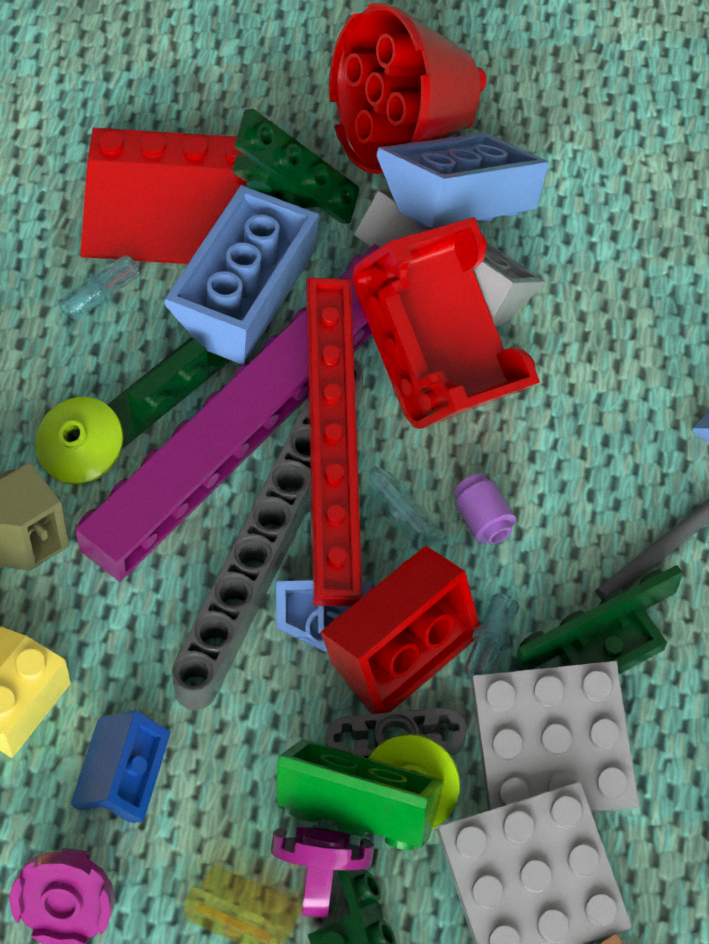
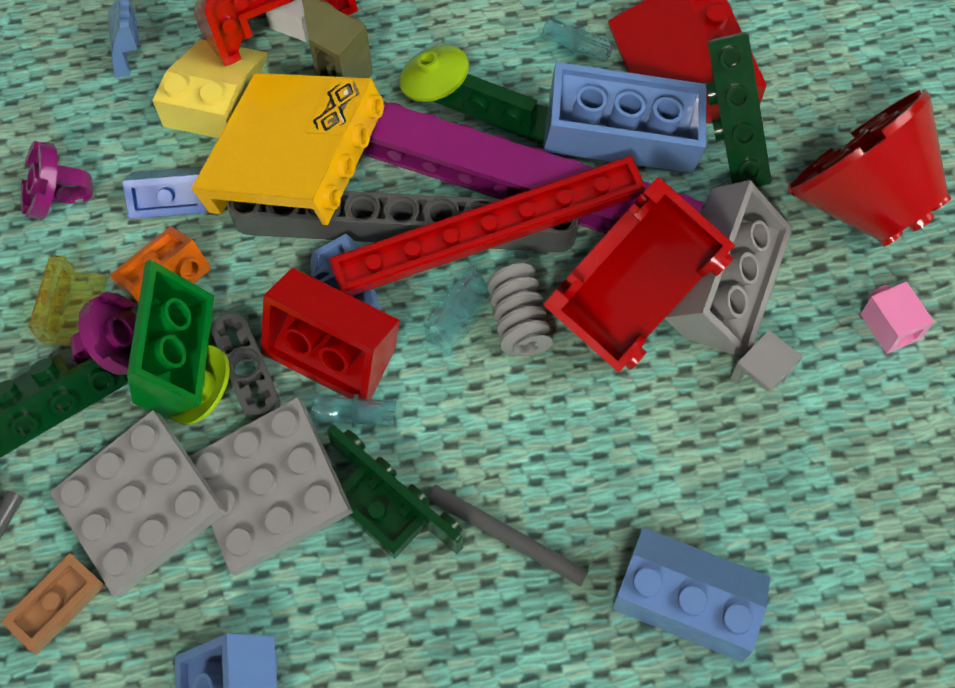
camera: 75 degrees right, 5 degrees up
(138, 598) = (291, 143): none -> yellow panel
(233, 796) = (171, 251): none -> orange bracket
(432, 449) = (519, 311): none -> light grey piece
(461, 179) = (798, 239): medium blue slope -> none
(484, 509) = (477, 369): medium lavender brick -> none
(555, 142) = (896, 316): none -> bright pink brick
(565, 262) = (767, 362): none -> light grey panel

